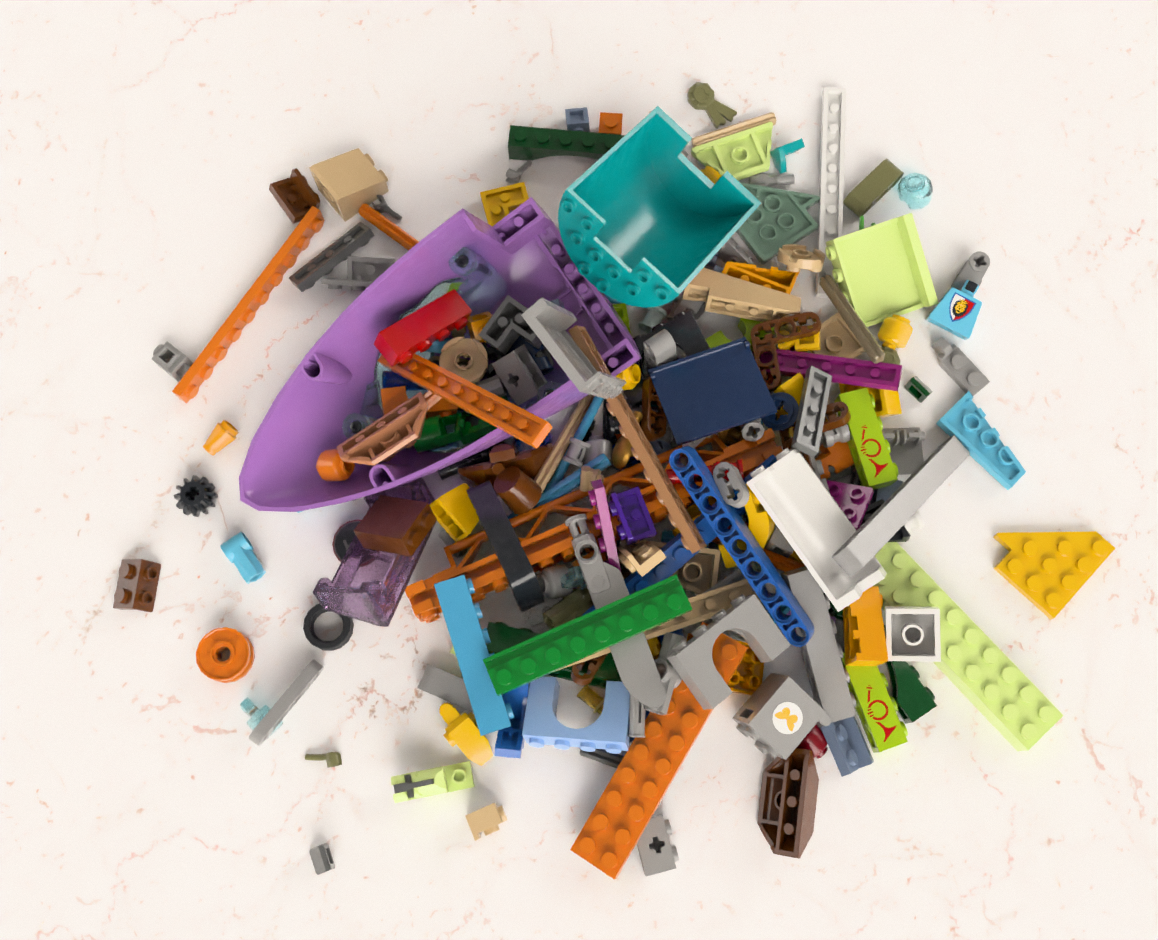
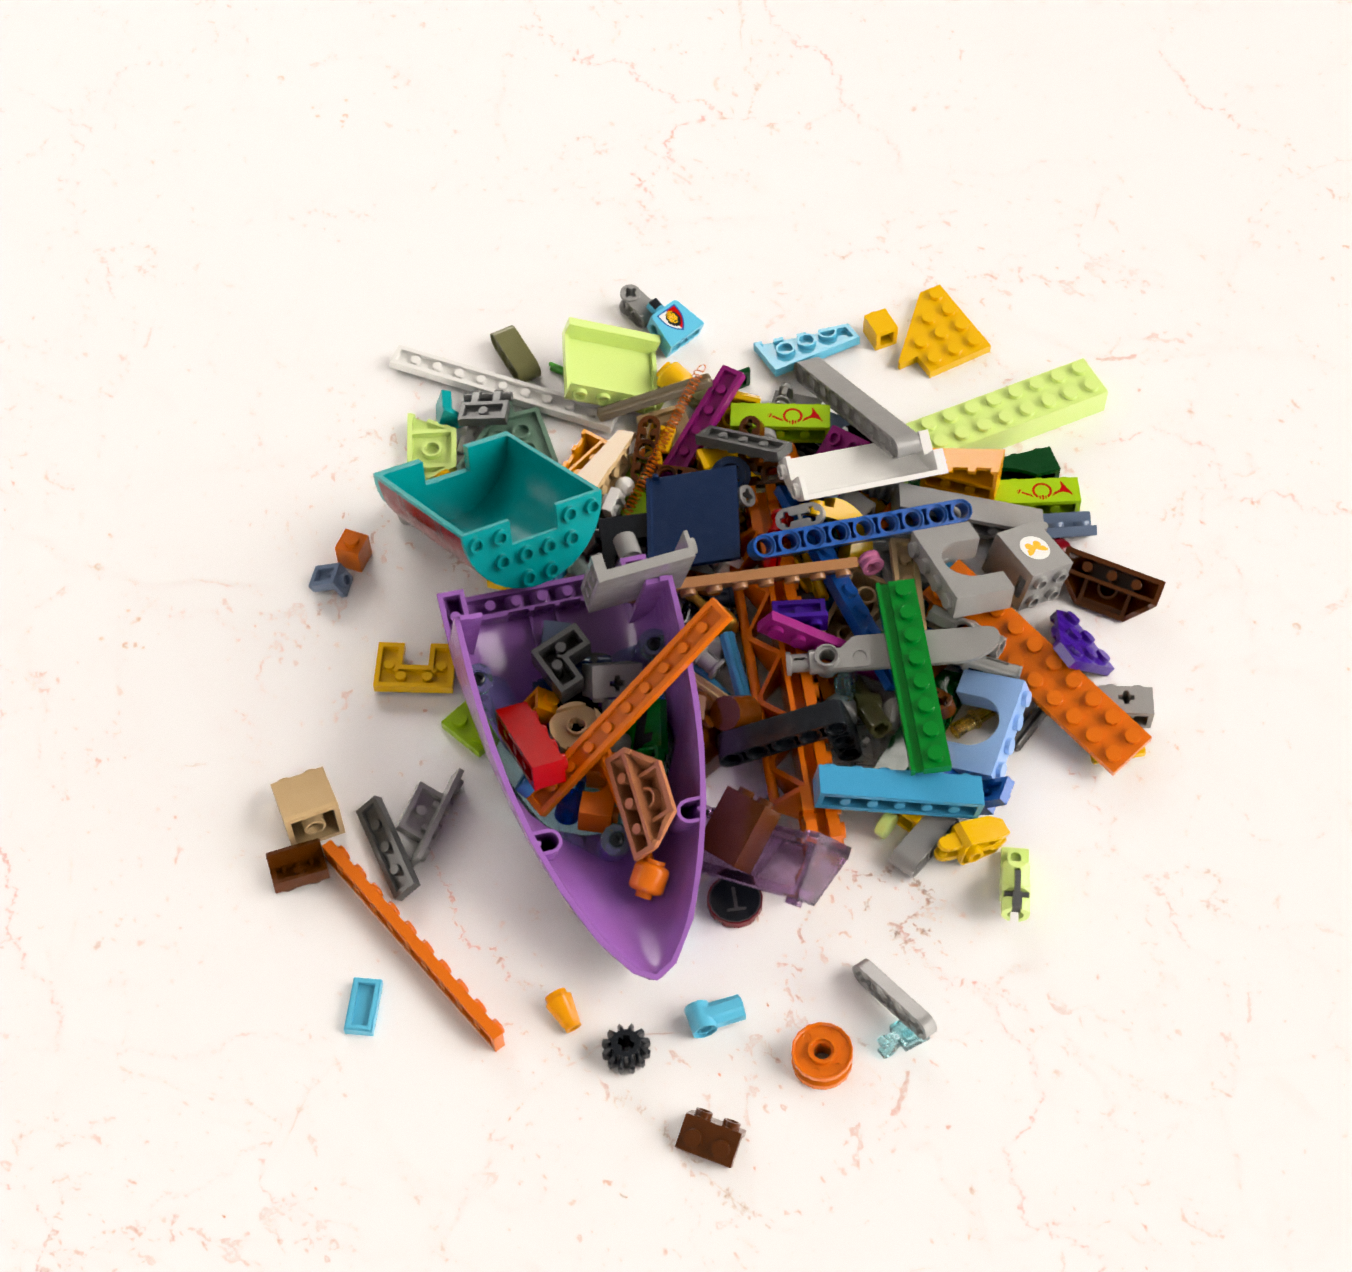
camera: 70 degrees left, 20 degrees down
(161, 355) = (455, 1049): light grey window -> none
(192, 288) = (363, 1006): none -> medium azure tile
(310, 635) = (819, 966): black tyre -> none
(322, 858) = (1070, 1008): slope -> none
(332, 758) = (965, 976): olive hand -> none
(383, 207) = (340, 783): dark grey hand -> none
(387, 226) = (395, 774): orange axle -> none
(455, 512) = (741, 775): yellow torso -> none
(486, 820) = (1066, 845): tan brick -> none
(514, 176) = (364, 654): light grey hand -> none
(536, 143) = (341, 613): dark green arch -> none
(587, 476) = (746, 650): tan plate -> none
(643, 559) = (847, 615): tan bracket -> none
(701, 97) = (352, 466): olive piece -> none
(702, 783) = (1077, 645): none -> dark purple plate
(720, 319) = (615, 500): none -> white plate
(724, 566) = (871, 562): none -> bright pink bush
(735, 128) = (400, 437): tan axle -> none
(790, 182) = (485, 408): none -> dark grey plate
(797, 258) = (571, 426): tan plate -> none
(802, 339) = (663, 441): none -> orange piece
(913, 633) = (981, 427): white brick -> none
(915, 190) = (531, 323): clear light blue hair -> none
(959, 367) = (725, 344): light grey hinge -> none
(1031, 504) = (880, 329): none -> yellow brick

